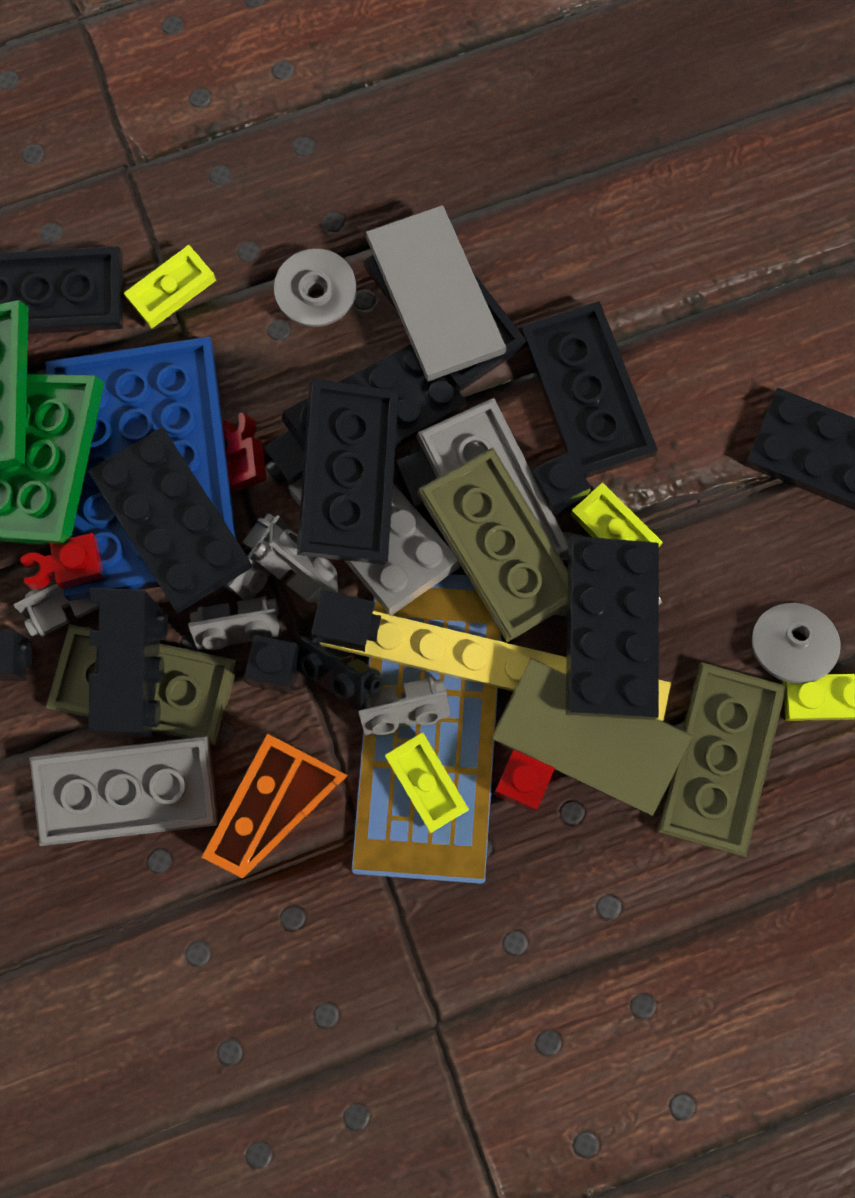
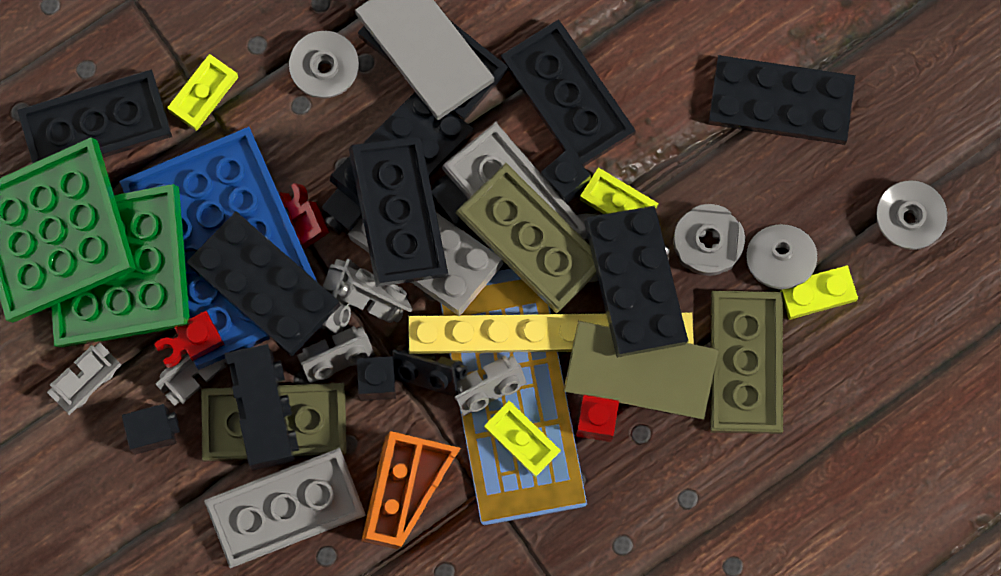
camera: 20 degrees left, 0 degrees up
(345, 621) = (428, 329): black brick -> none
(734, 589) = (725, 228): none -> light grey plate

